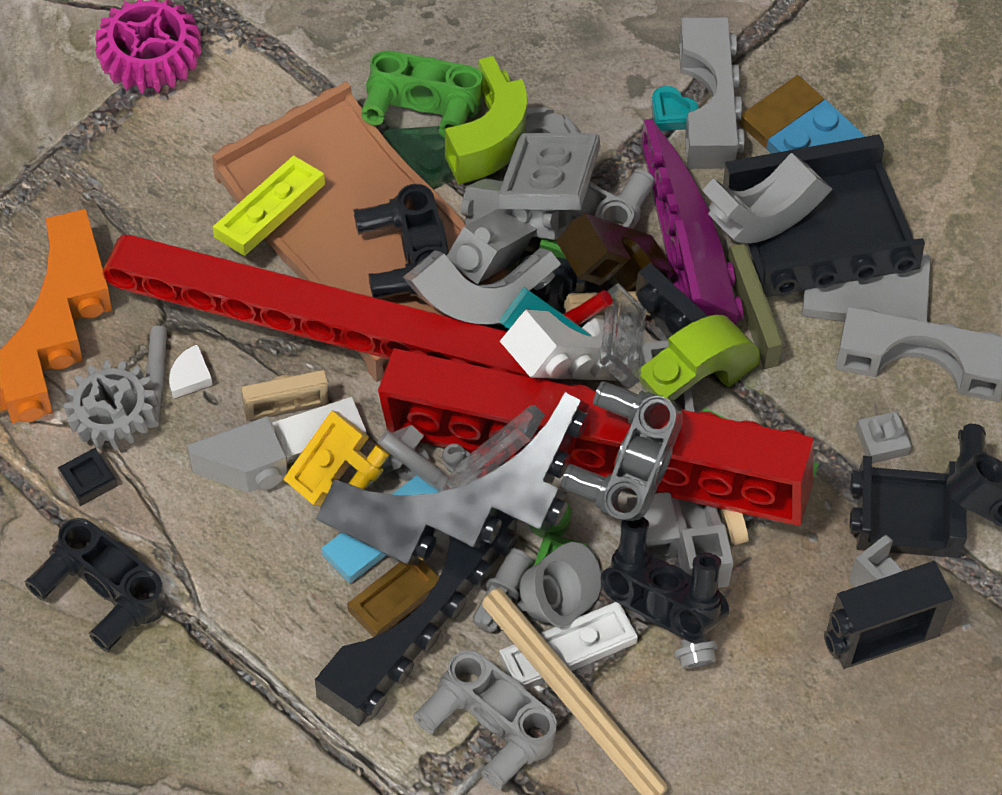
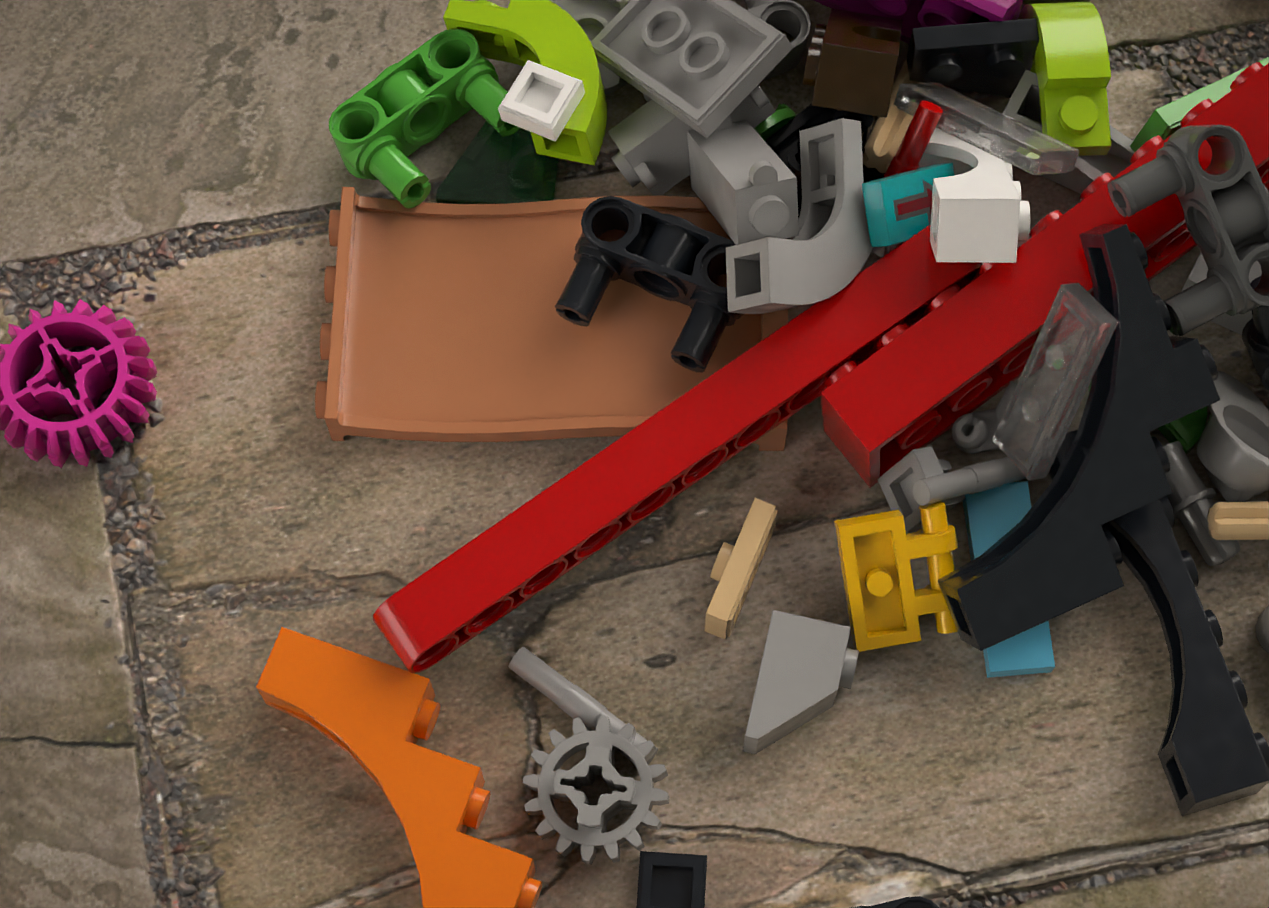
camera: 50 degrees left, 10 degrees up
(189, 373) = (611, 662): white tile -> none
(268, 205) = (455, 402): neon yellow plate -> none
(299, 429) = (809, 560): white tile -> none
(392, 597) = (1114, 642): pearl gold tile -> none
(459, 125) = (541, 100): none -> white tile

